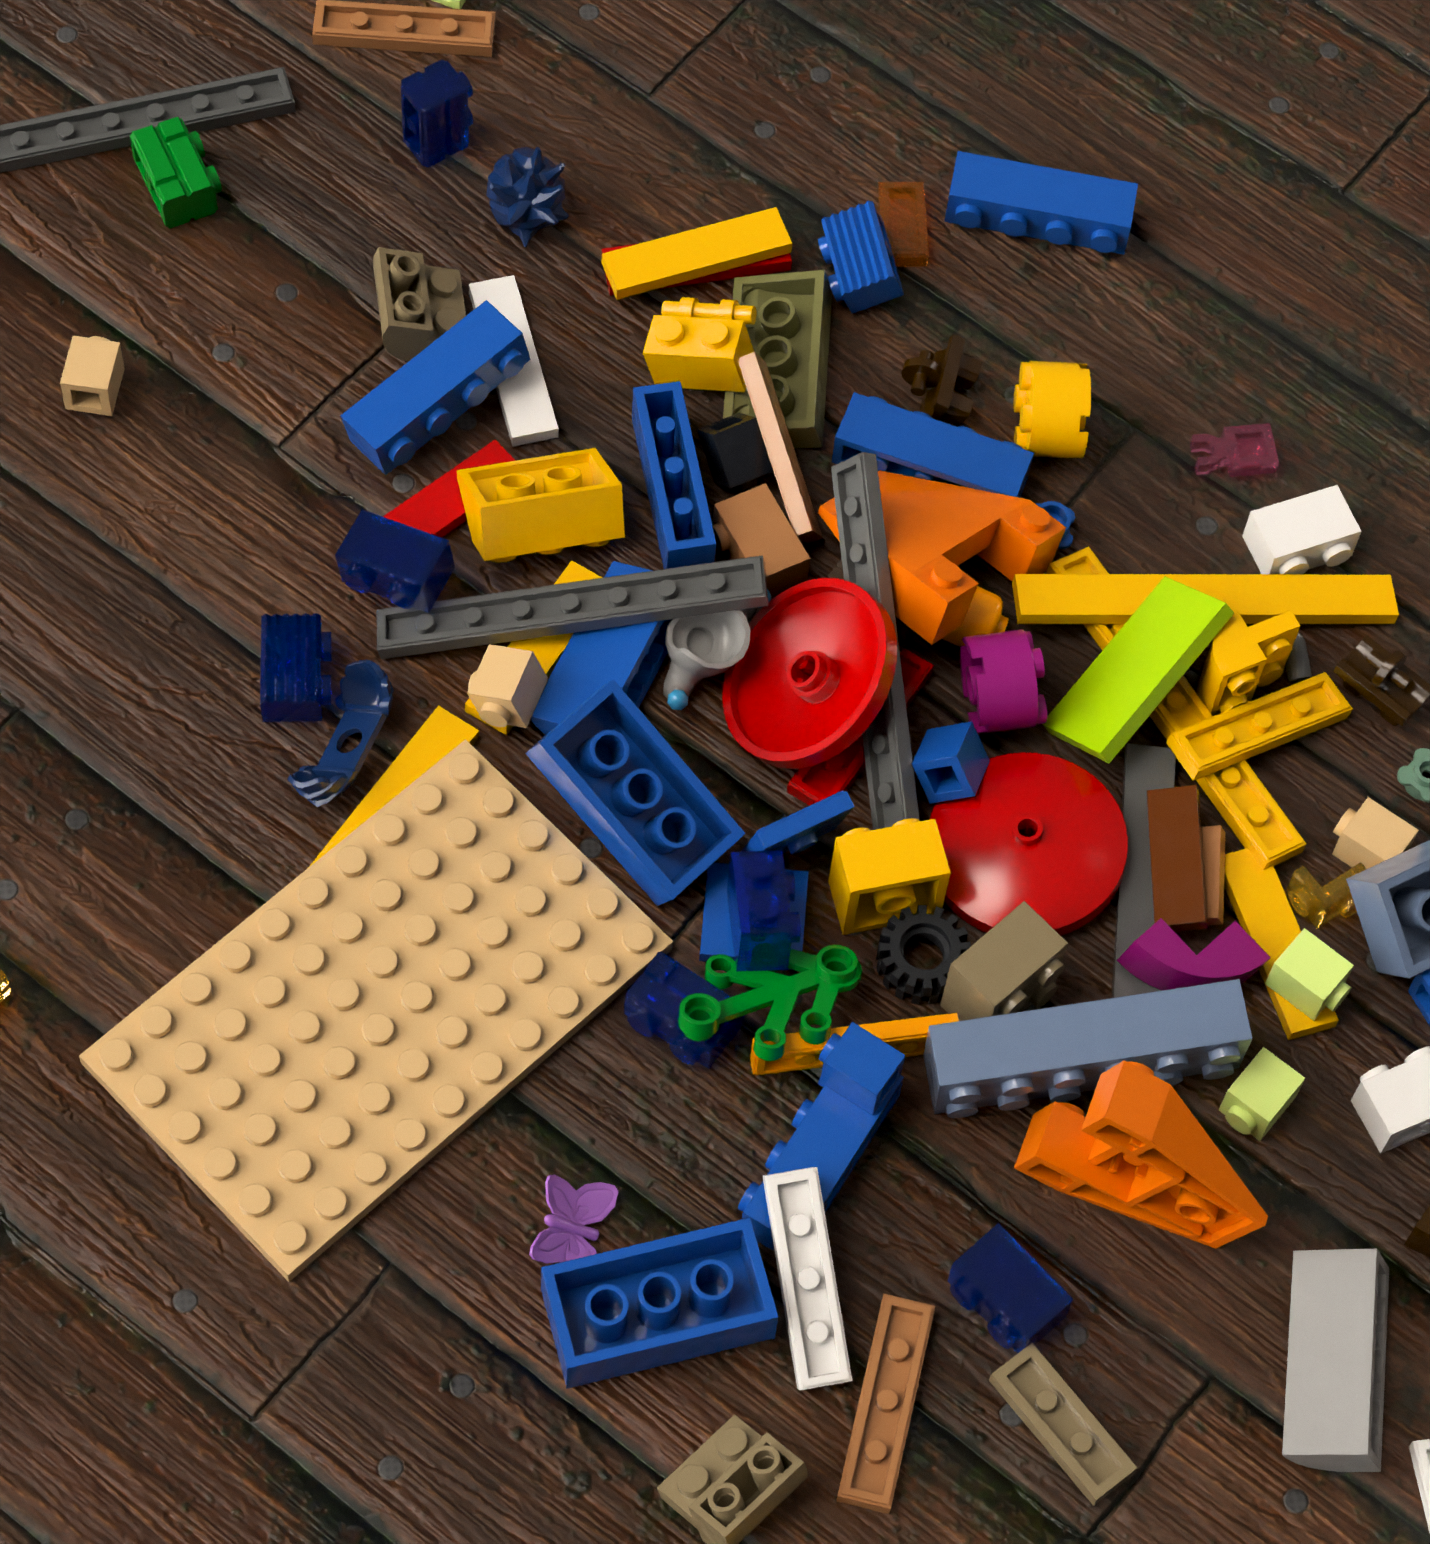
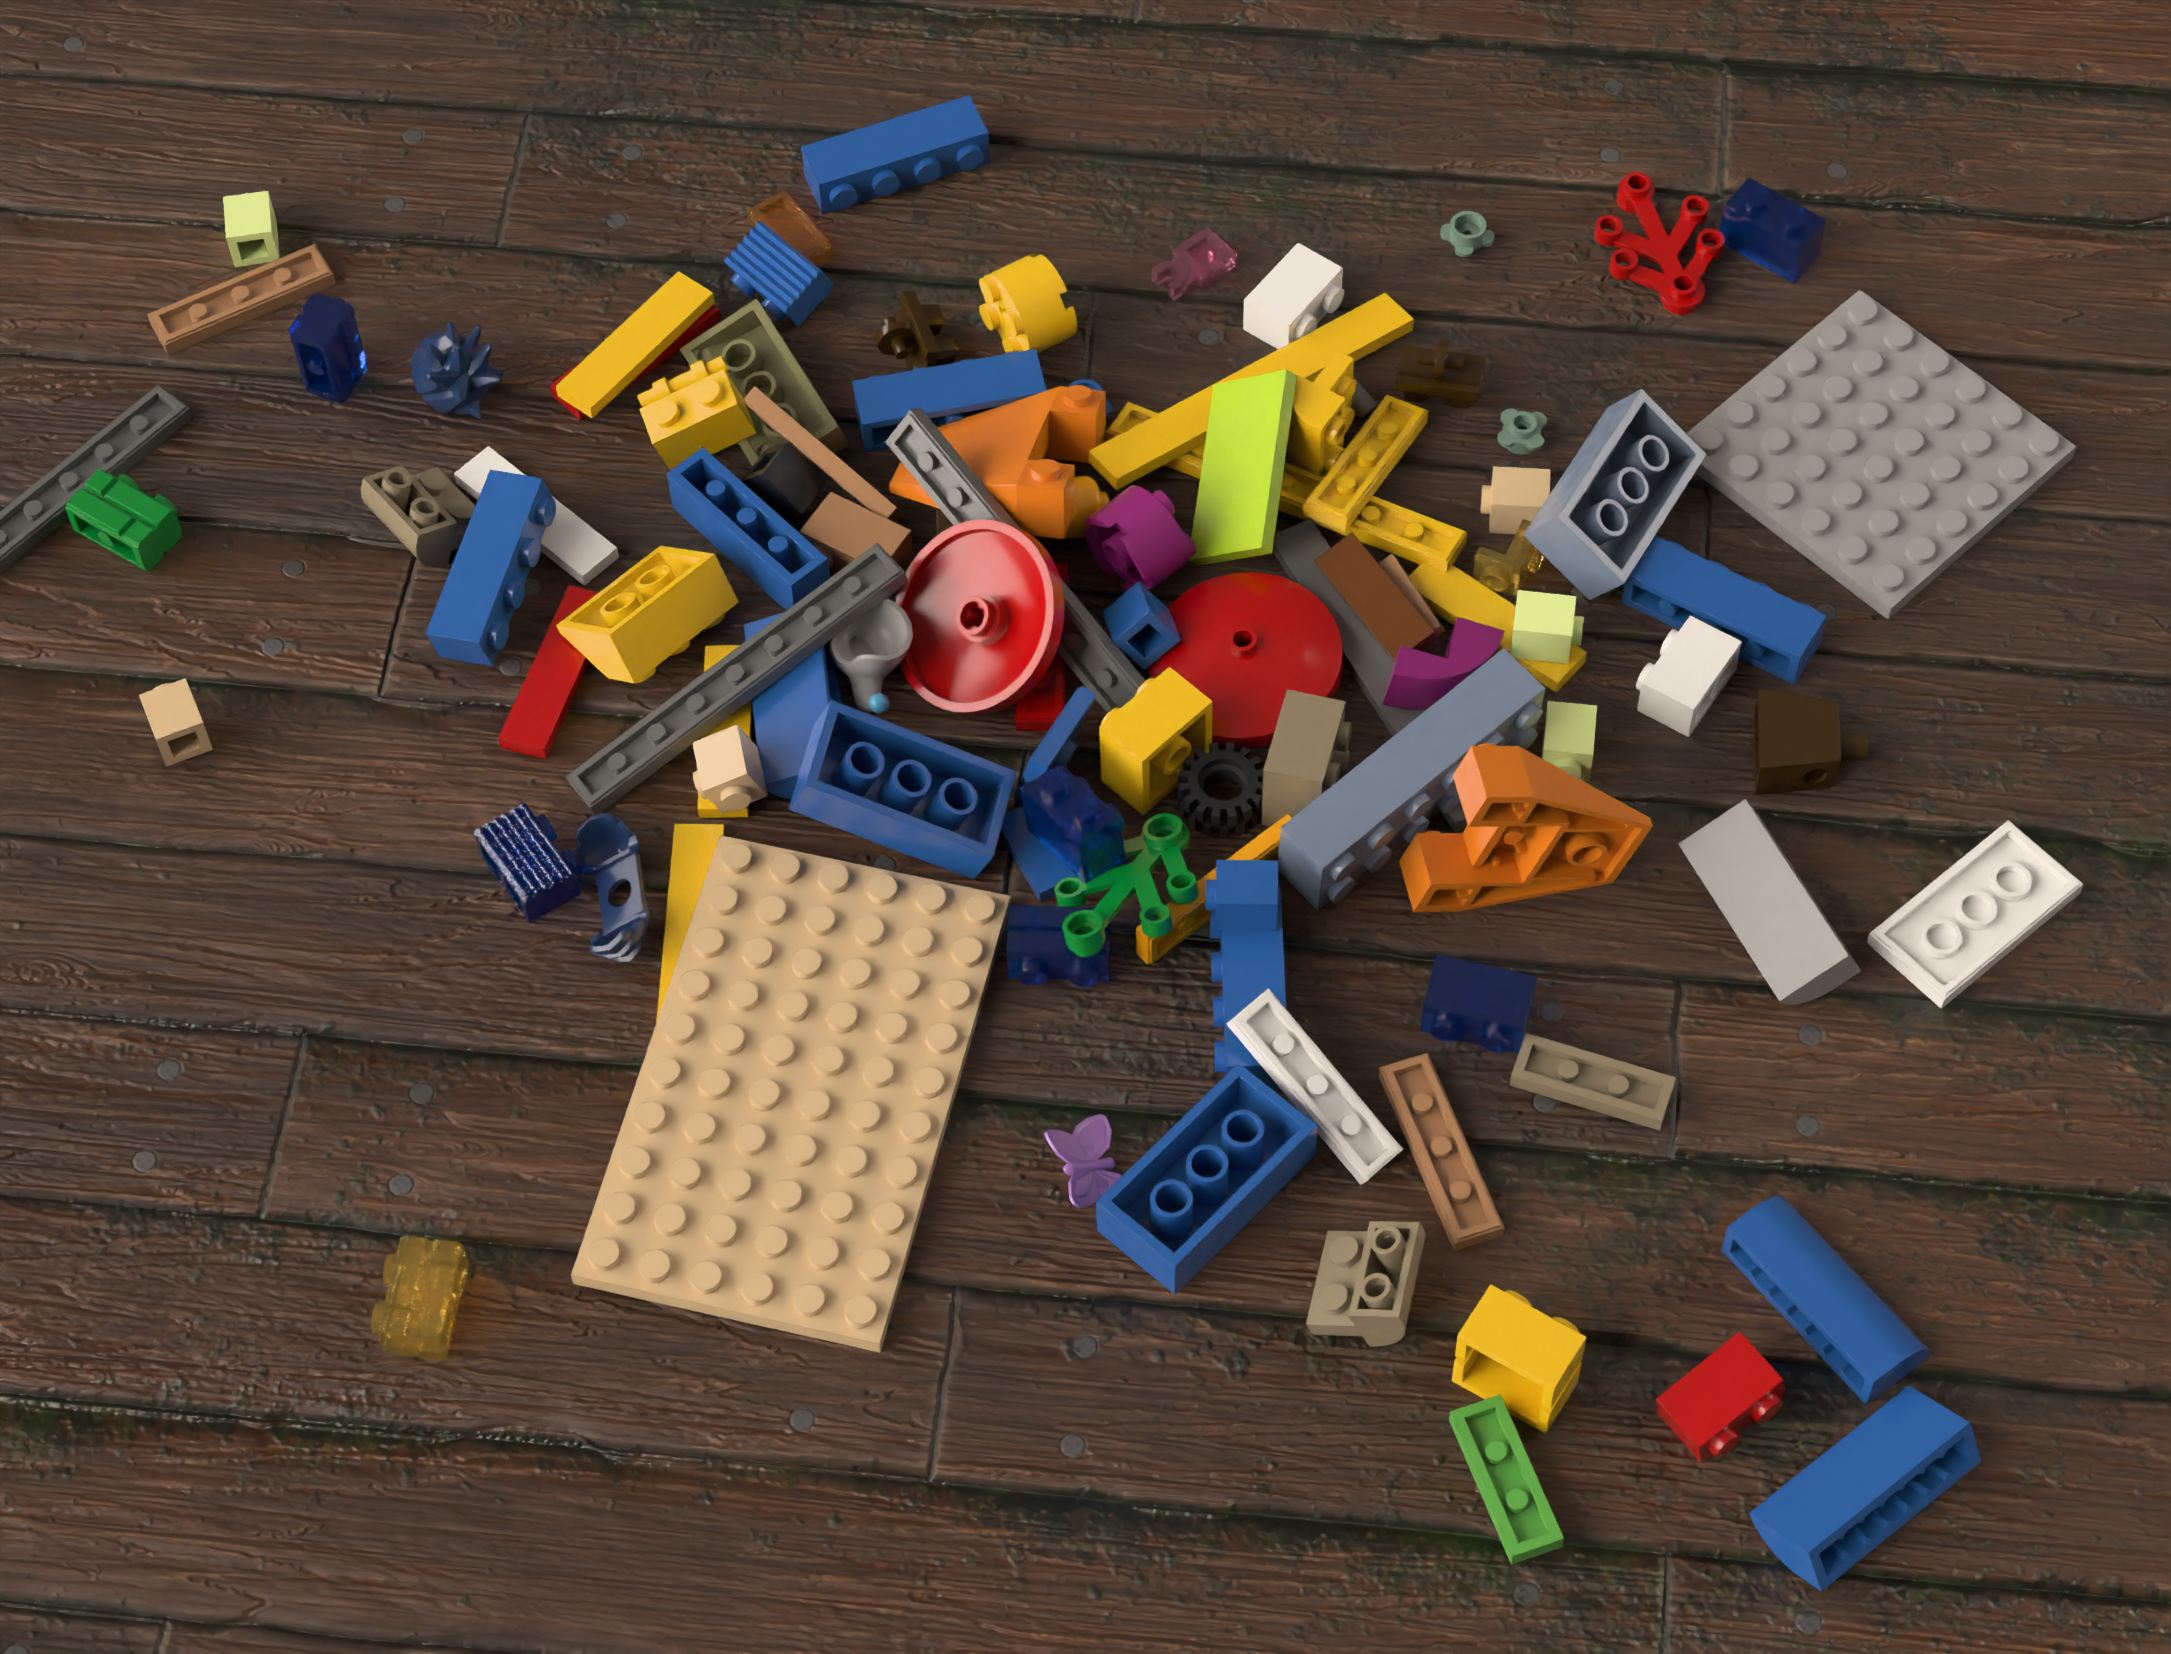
camera: 25 degrees left, 5 degrees down
(395, 561) = (559, 724): clear blue brick -> none

